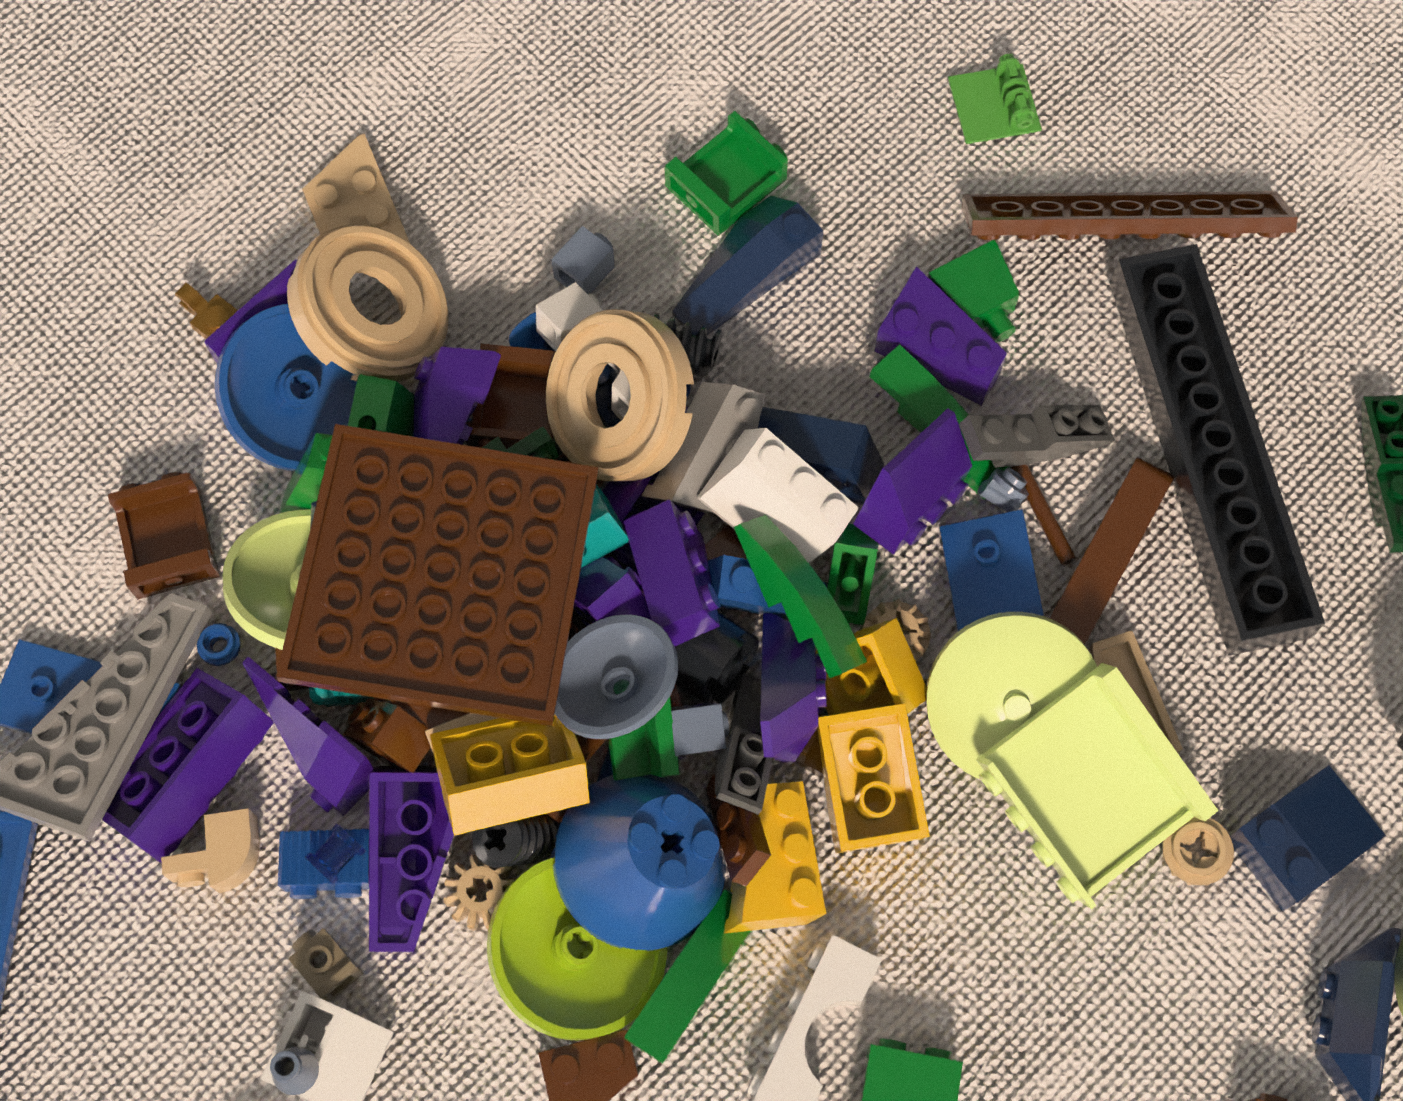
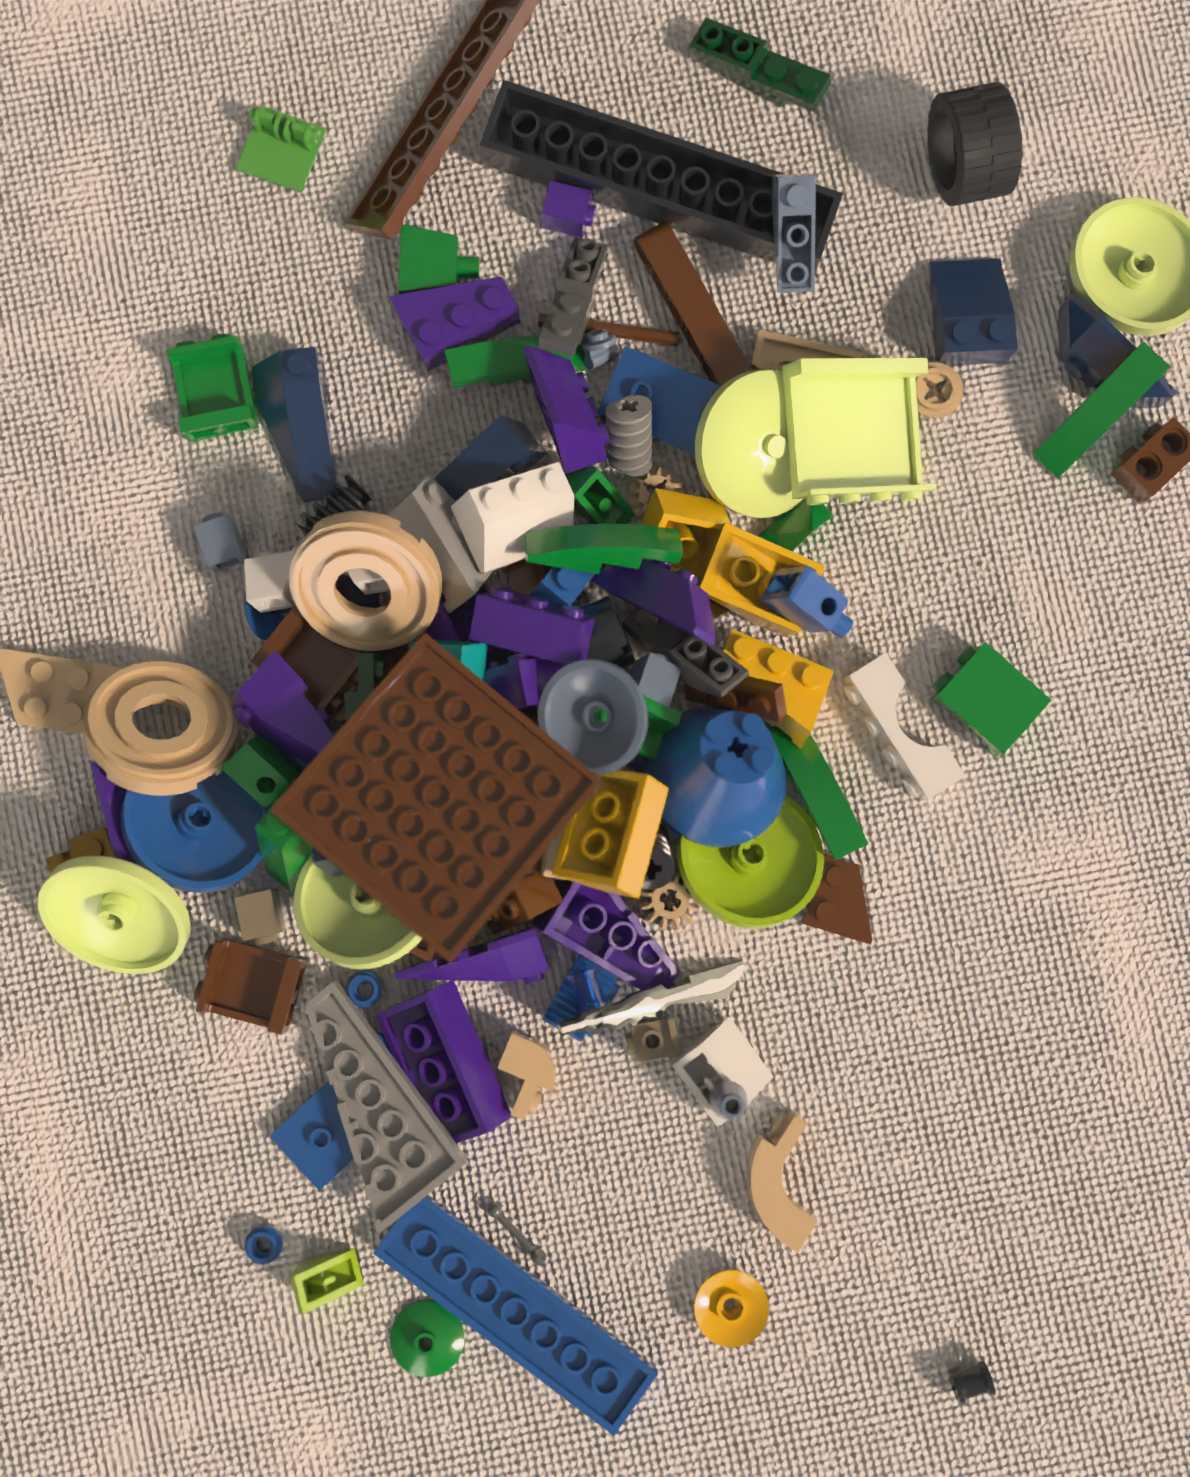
camera: 60 degrees left, 15 degrees up
(28, 980) = (537, 1255): none -> dark grey hinge
(161, 366) = (114, 915): none -> yellowish green dish
(237, 503) = (260, 916): none -> dark tan brick
(362, 936) = (652, 1001): none -> sword
(873, 815) = (808, 601): none -> blue torso
(933, 564) = (630, 435): none -> light grey piece
(957, 793) = (796, 525): none -> green slope
(1120, 380) = (568, 209): none -> dark purple brick
(1246, 594) = (794, 231): none -> sand blue slope
(1297, 1034) = (1101, 409): none -> green slope

